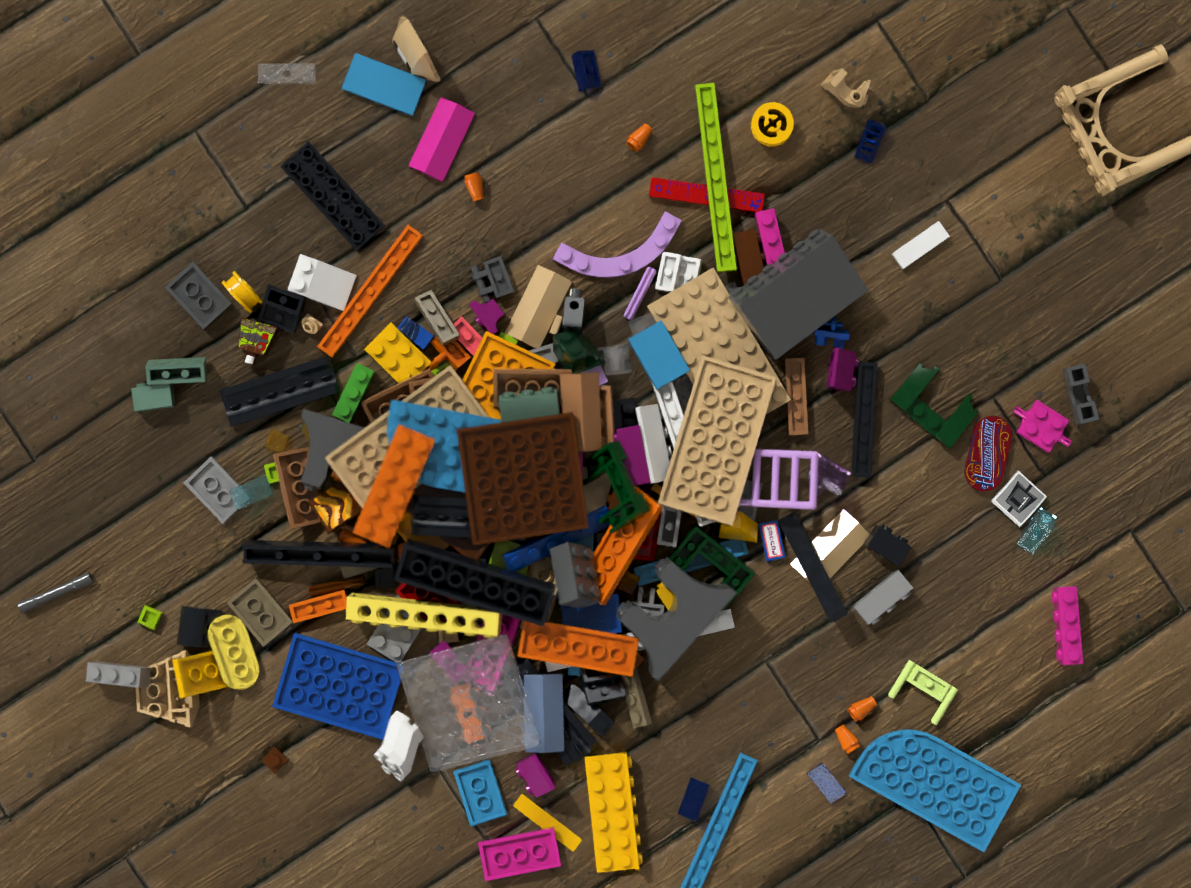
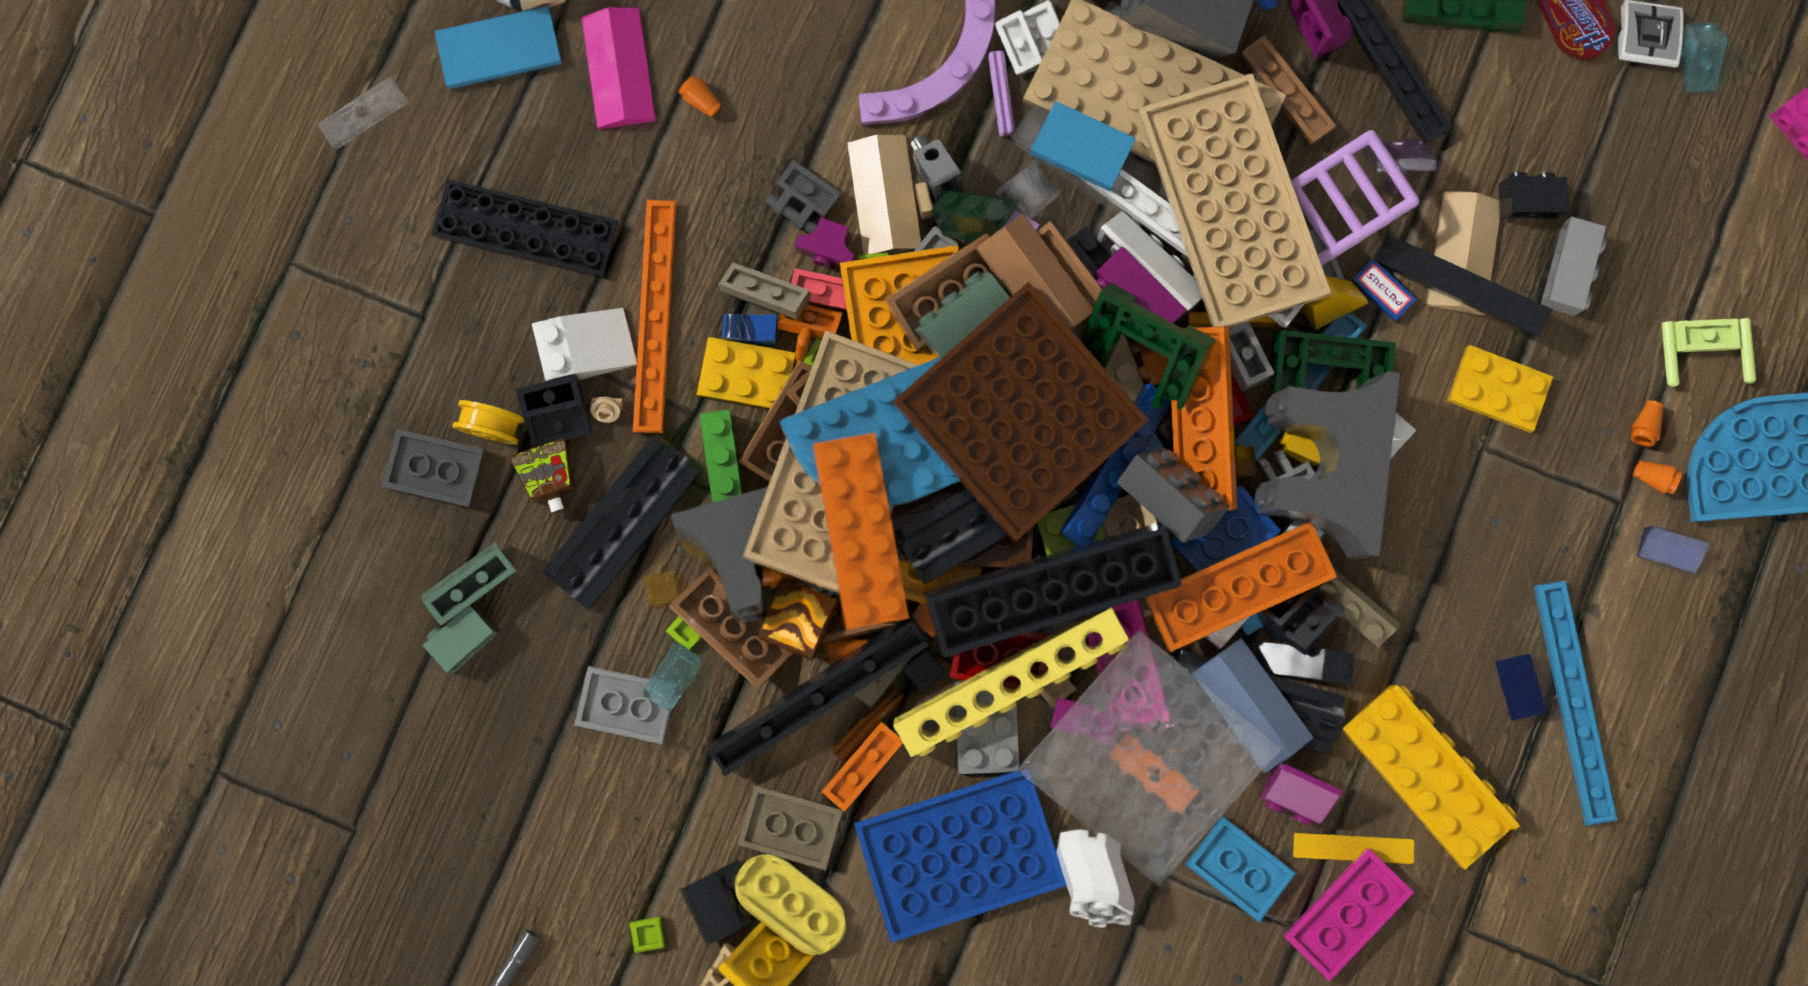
camera: 35 degrees left, 5 degrees down
(796, 635) = (1500, 388): none -> yellow plate

